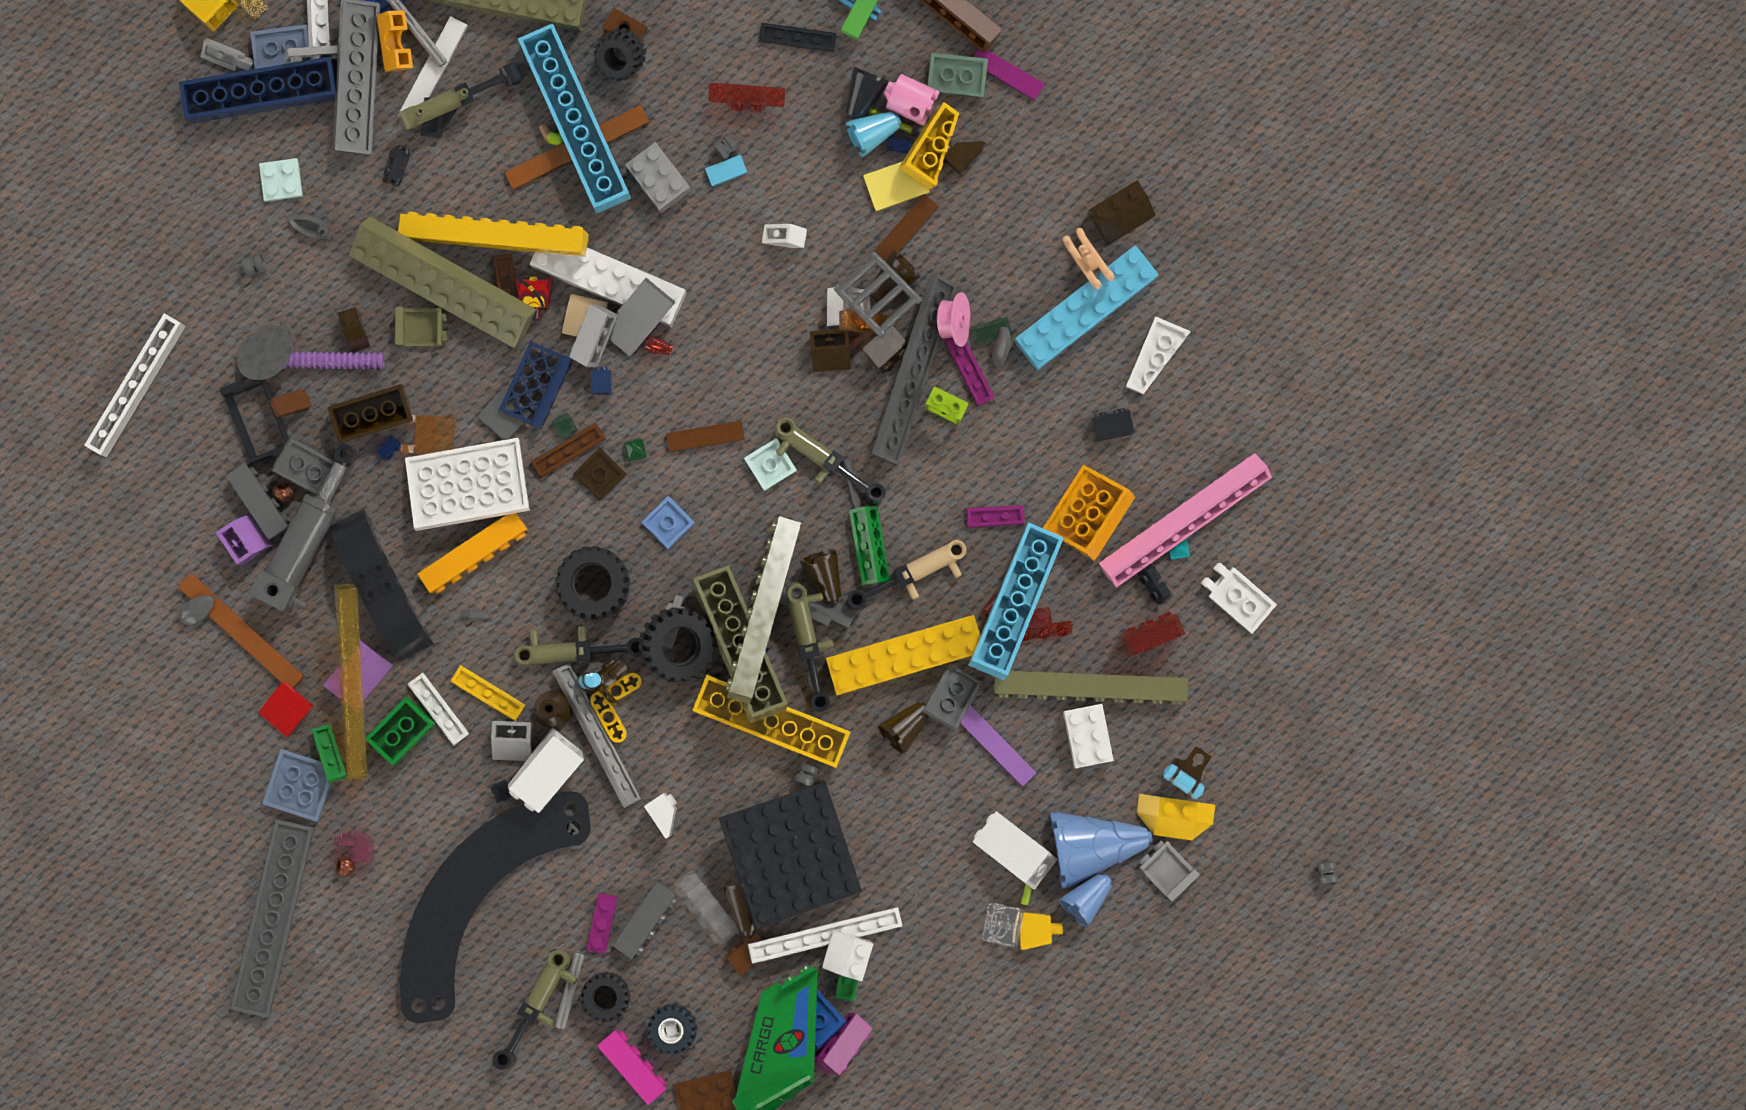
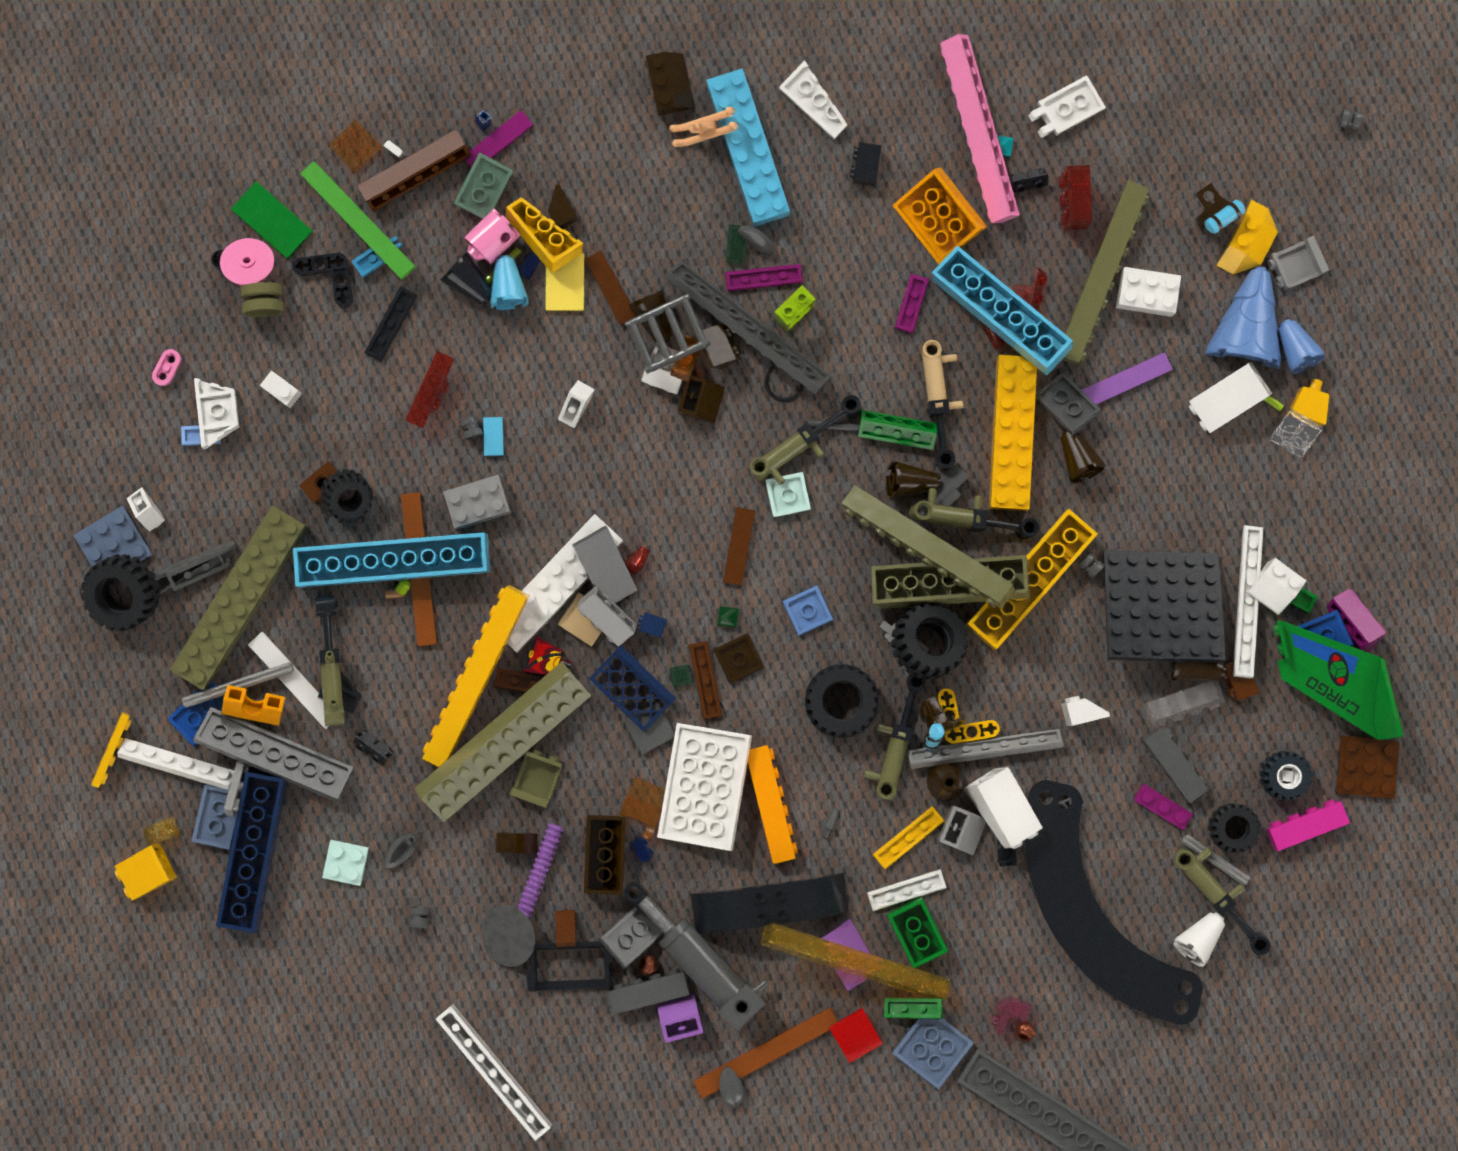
camera: 70 degrees left, 0 degrees up
(225, 56) = (206, 873): light grey hinge -> none
(489, 1001) = (1200, 939): none -> white cone
(860, 417) = (773, 395): none -> black tyre
(954, 319) = (714, 273): bright pink piece -> none
(1025, 49) = (483, 125): none -> clear blue piece

